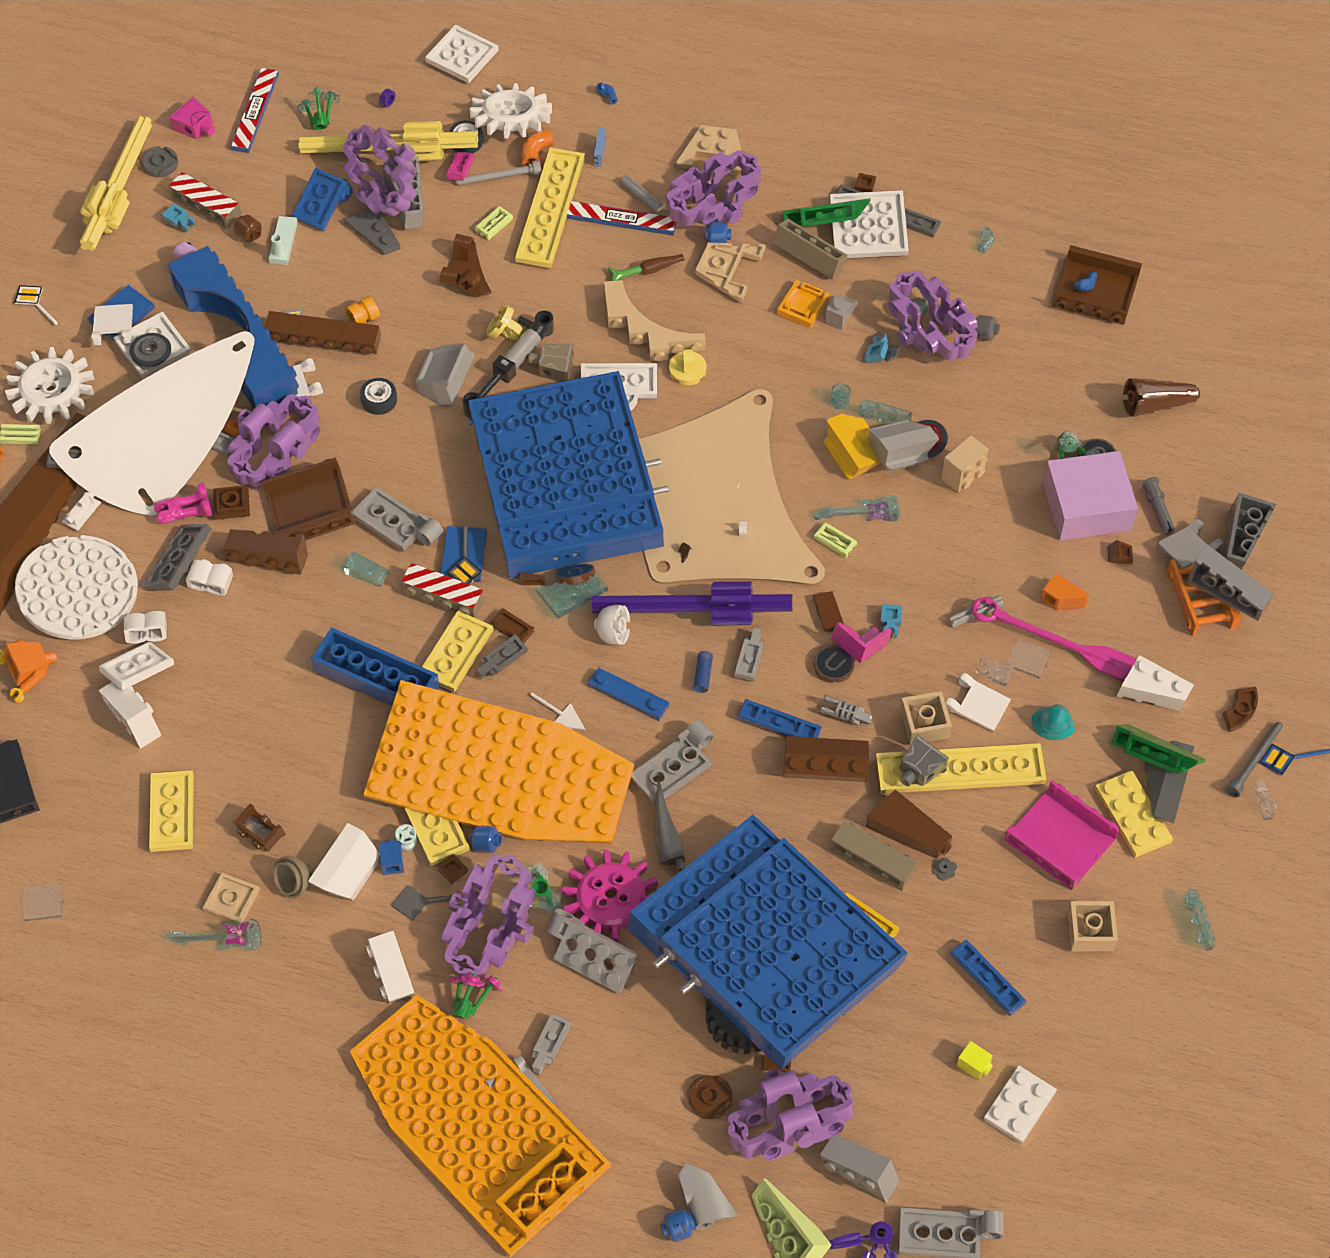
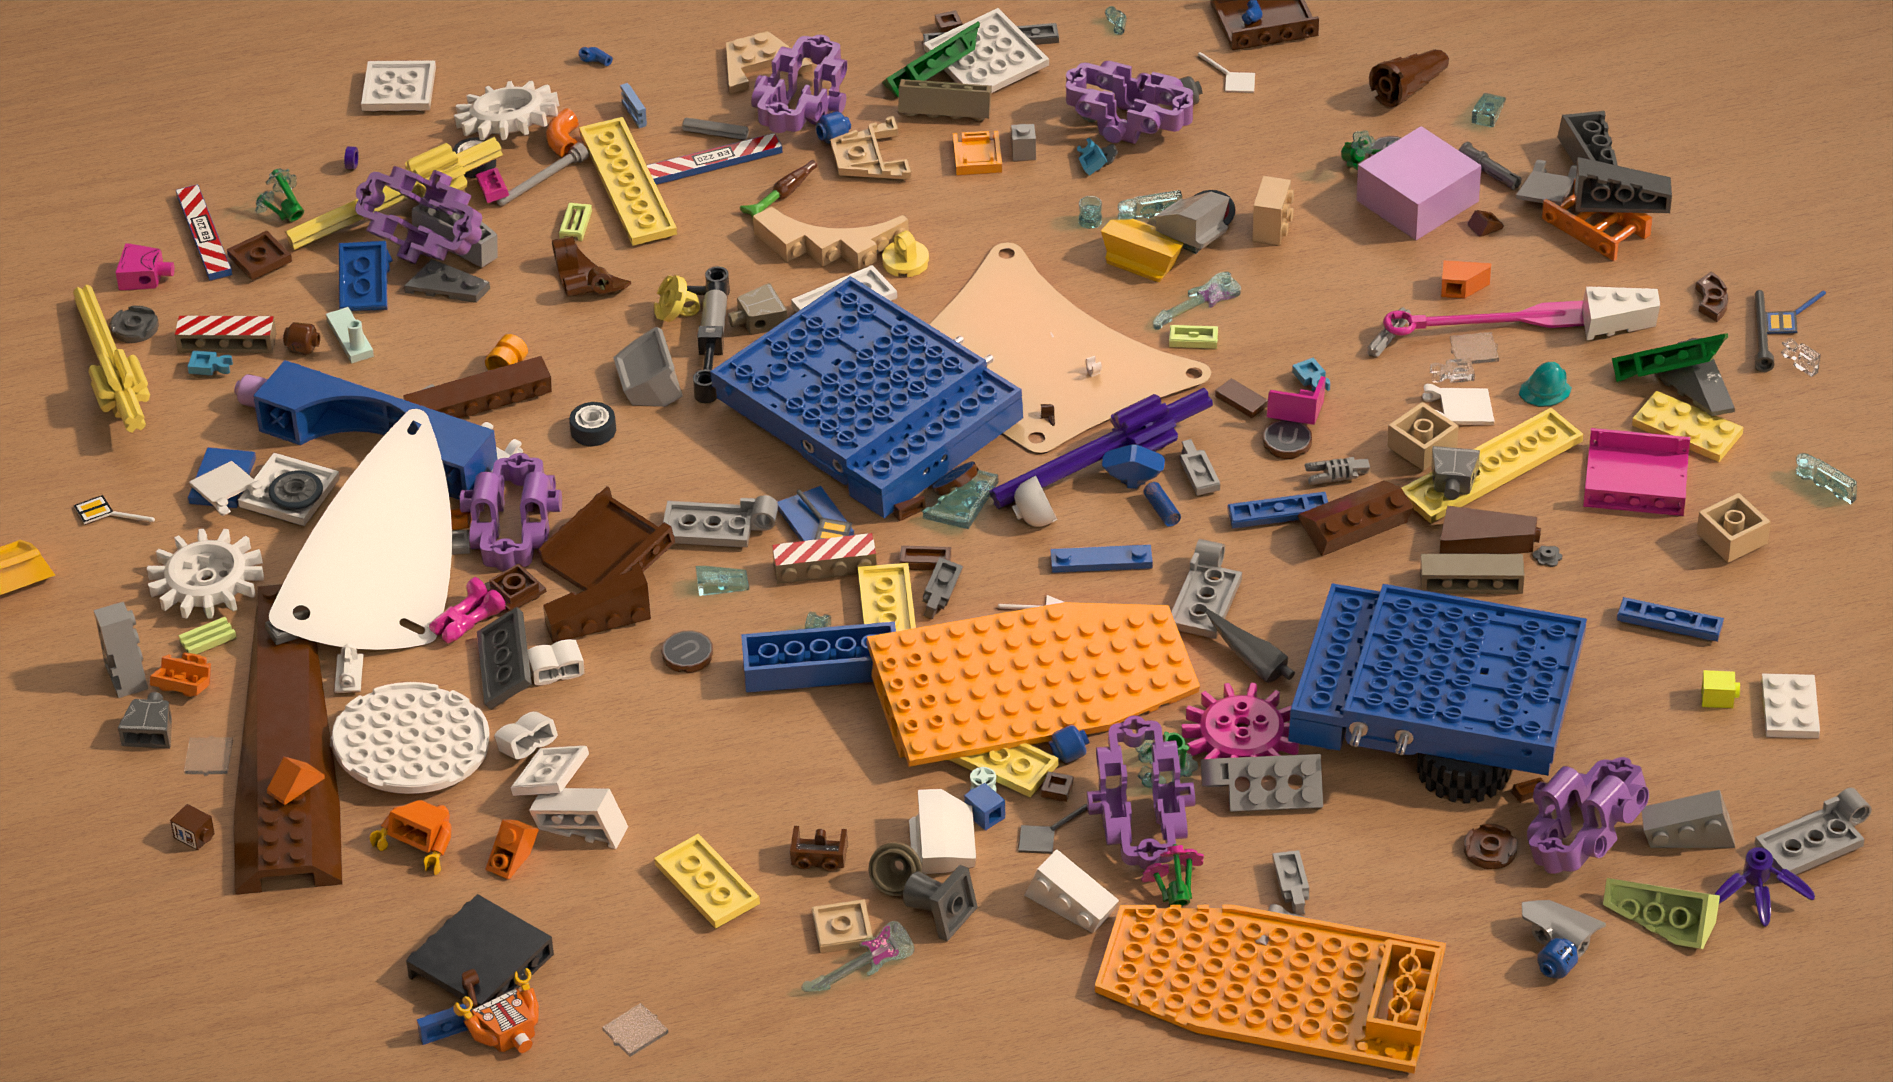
camera: 30 degrees left, 15 degrees down
(71, 711) = (511, 847): none -> orange slope
(273, 147) = (259, 255): none -> reddish brown plate
(301, 615) = (687, 651): none -> tile
(301, 923) = (949, 901): none -> dark grey plant
(396, 643) = (816, 621): none -> clear light blue wheel
(703, 629) = (1133, 464): none -> blue piece
(1034, 335) = (1234, 81): none -> white piece
(1198, 453) = (1487, 109): none -> clear light blue slope

